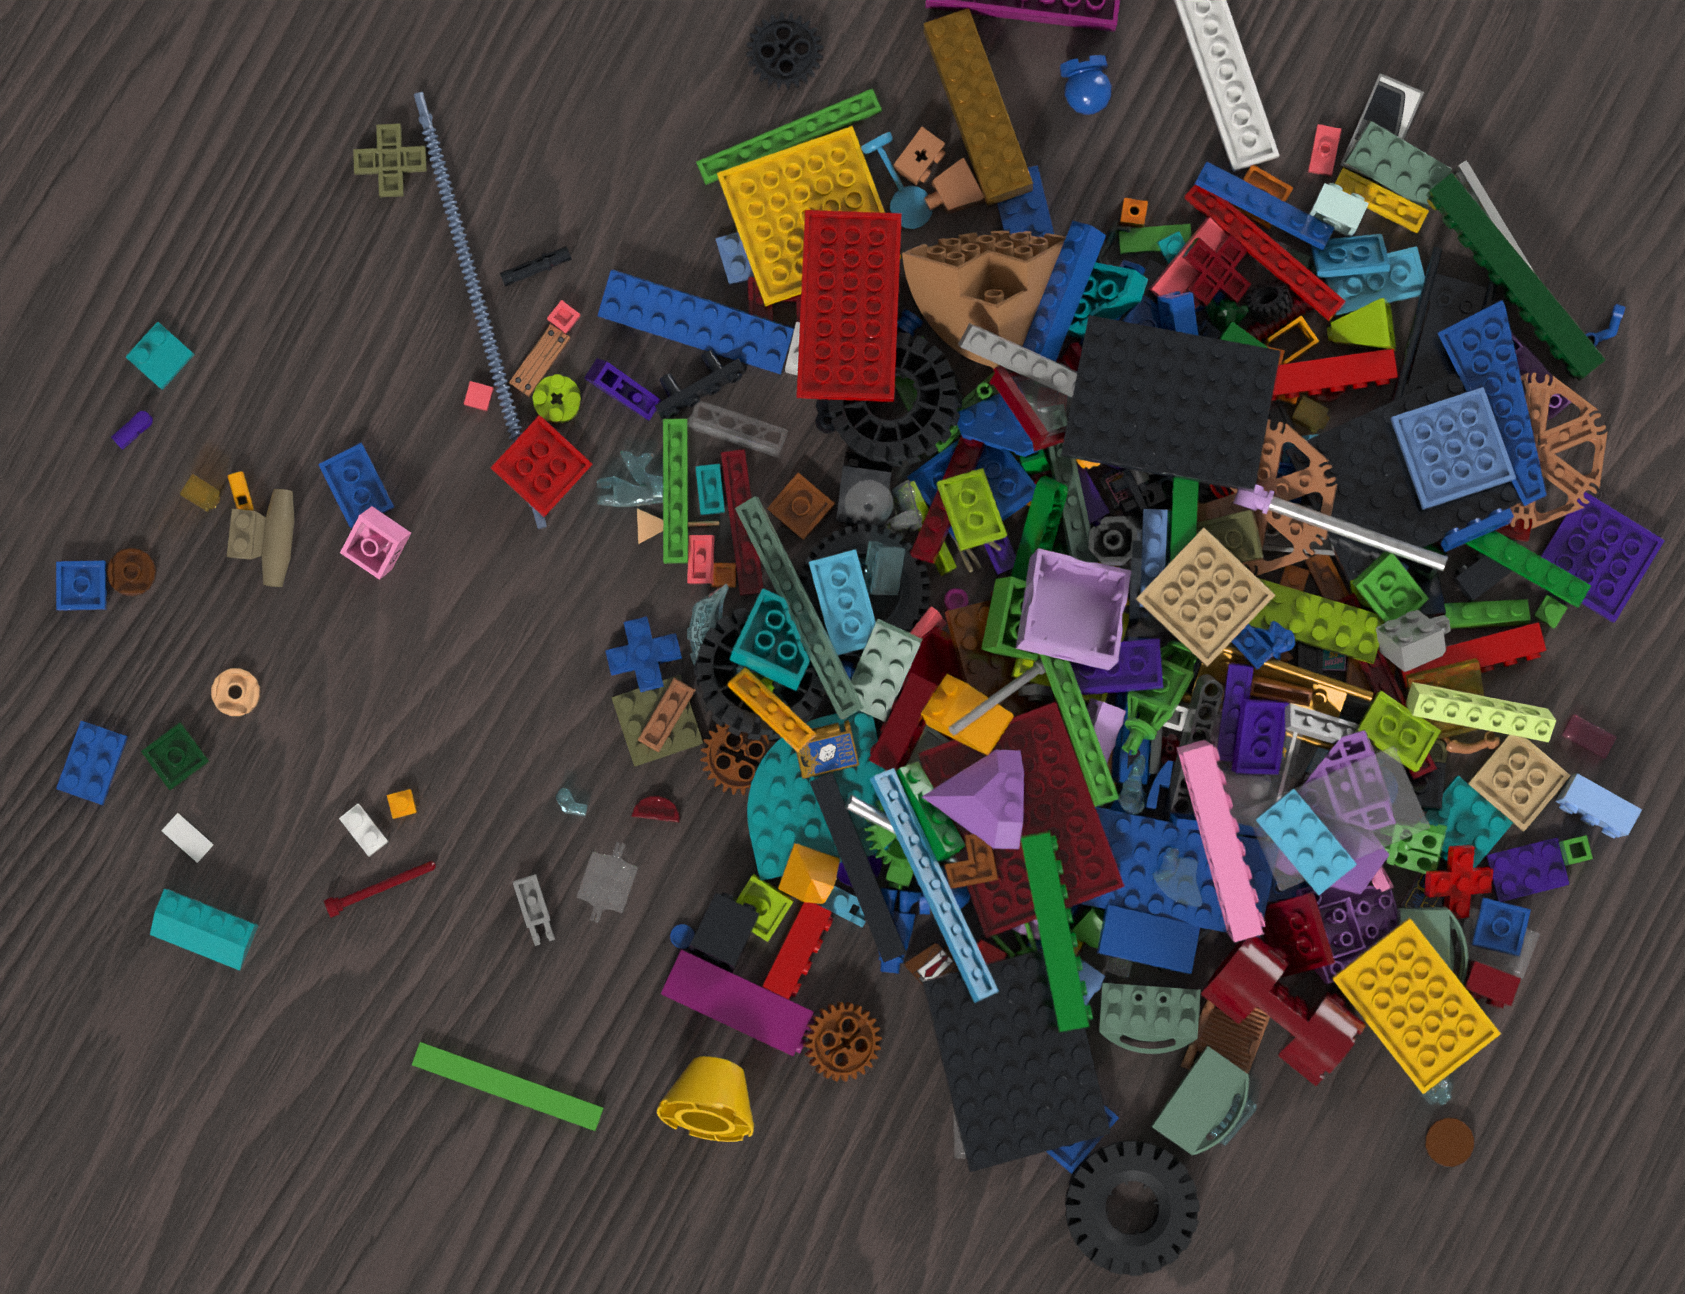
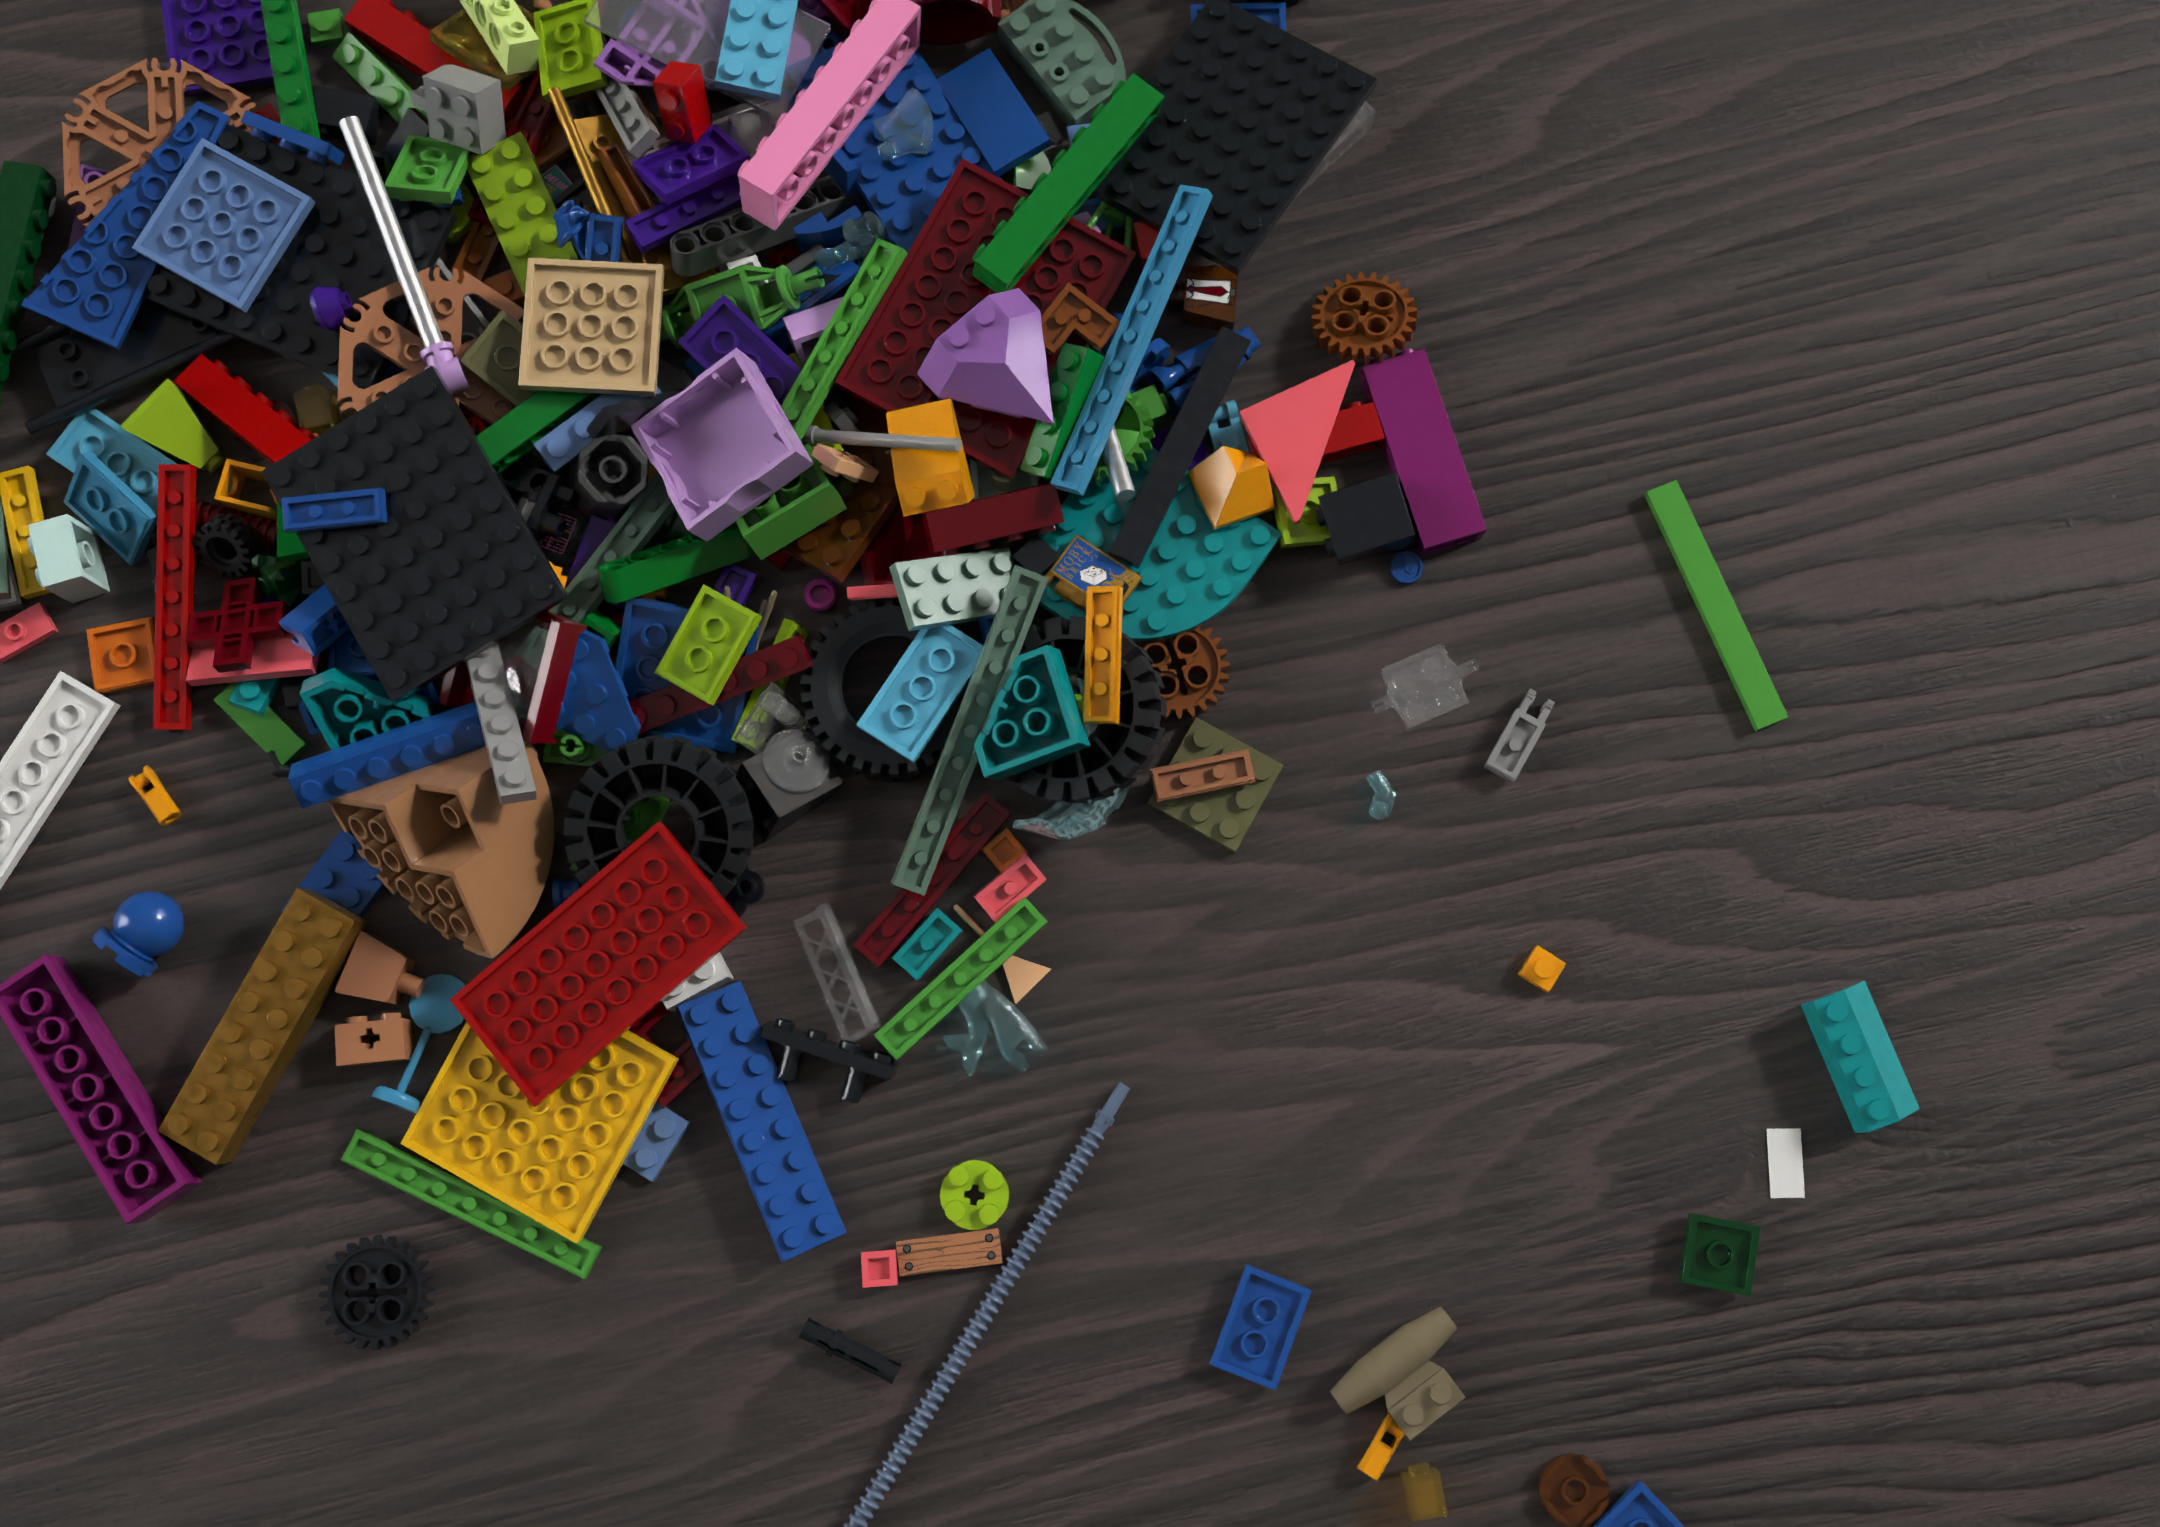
camera: 130 degrees left, 5 degrees down
(92, 762) = (1808, 1339): blue plate -> none
(222, 686) = (1613, 1253): light nougat tile -> none
(336, 905) = (1708, 941): dark red piece -> none
(363, 830) = (1604, 984): white plate -> none
(375, 542) = (1303, 1246): bright pink brick -> none
(478, 396) = (1045, 1283): coral tile -> none
(541, 466) = (1061, 1143): red plate -> none
(622, 388) = (901, 1134): dark purple slope -> none
(643, 654) = (1161, 858): blue plate -> none
(657, 809) = (1305, 706): dark red tile -> none
(709, 1101) = (1542, 386): yellow cone -> none
(800, 506) = (862, 835): dark orange plate -> none
(810, 938) = (1294, 431): none -> coral tile
(865, 730) = (1036, 556): none -> black tile
(882, 568) = (851, 682): clear light blue panel -> none
(1005, 668) = (844, 463): none -> light nougat plate
(1133, 220) = (257, 771): orange plate -> none
(1159, 149) = (157, 798): none -> light orange bar
(1218, 370) = (334, 510): none -> blue tile
(1264, 205) = (127, 638): blue plate -> none
(1299, 761) = (682, 102): none -> red brick
(1347, 466) = (330, 306): none -> dark purple cone

